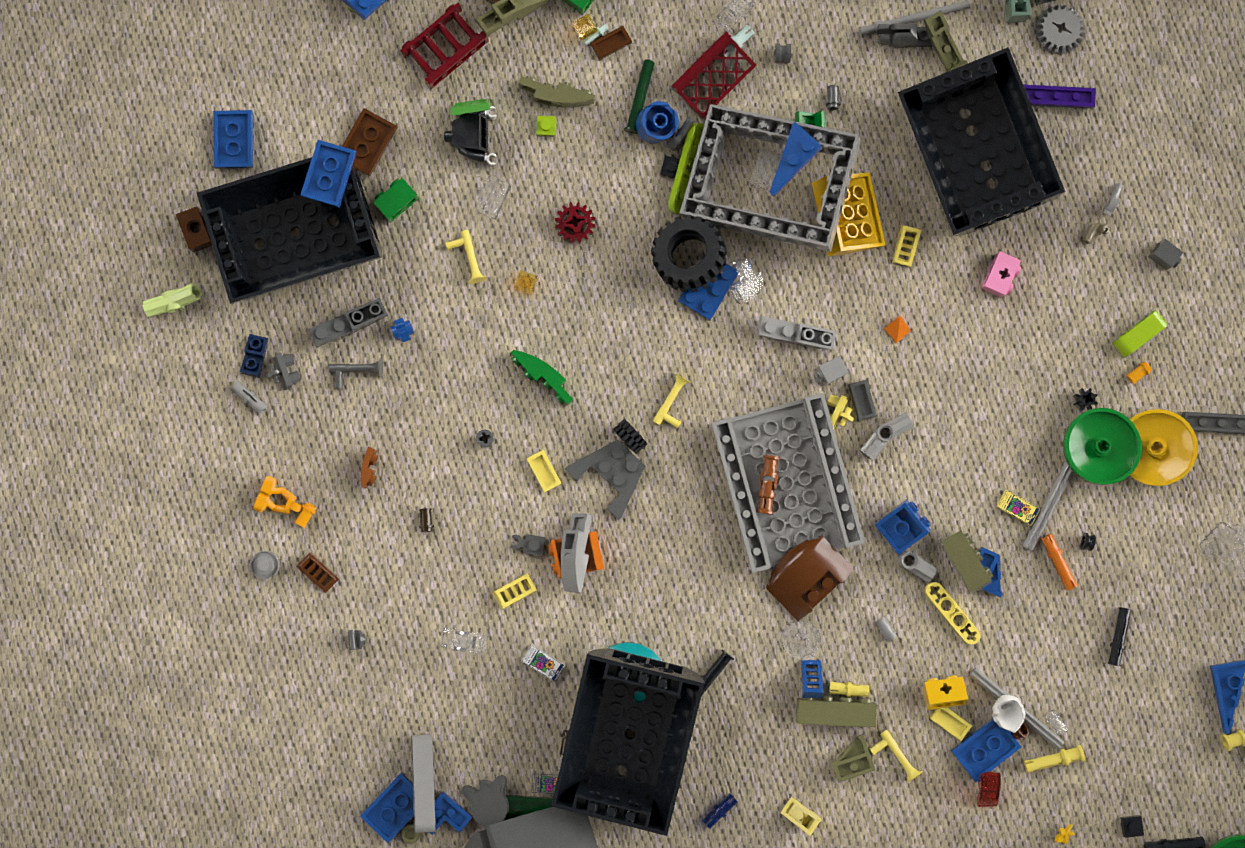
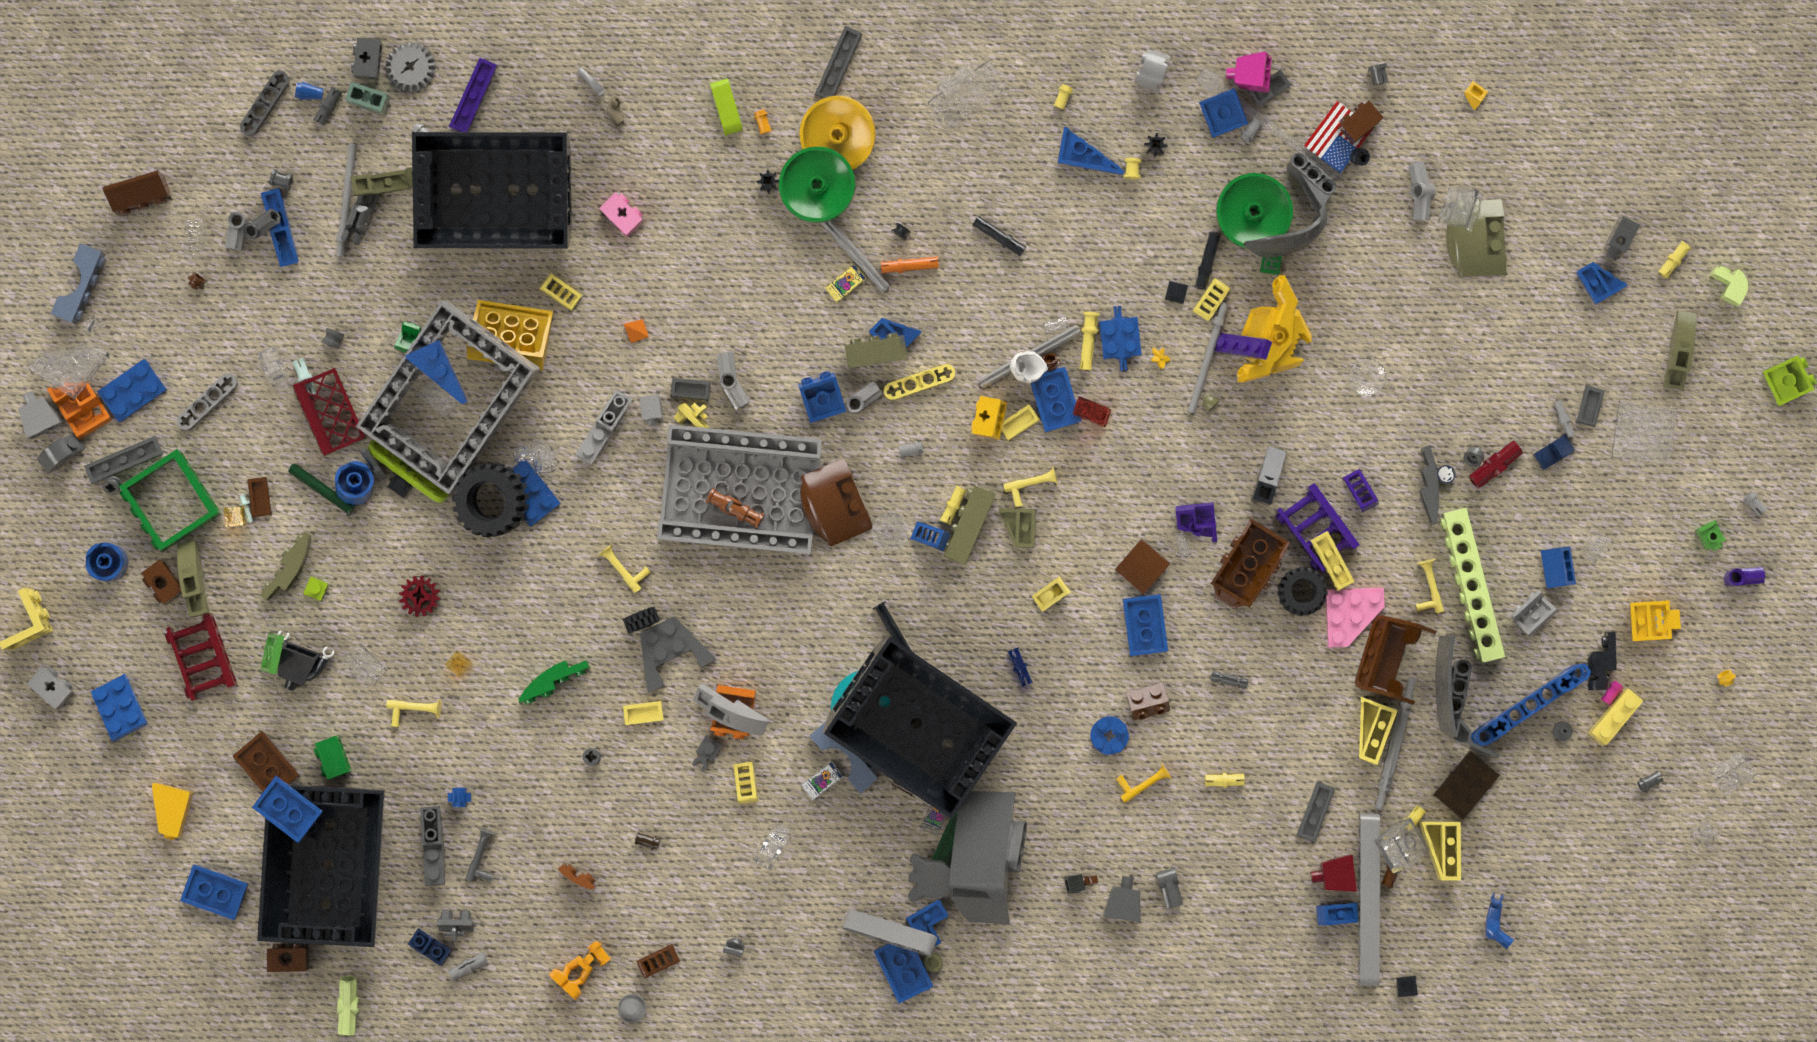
camera: 65 degrees left, 0 degrees up
(294, 71) = (171, 809): none -> yellow slope
(562, 698) = (861, 774): none -> sand blue arch
(833, 97) = (394, 307): dark grey pin -> none
(1068, 789) = (1120, 338): none -> blue plate
(1166, 254) = (662, 53): dark grey brick -> none

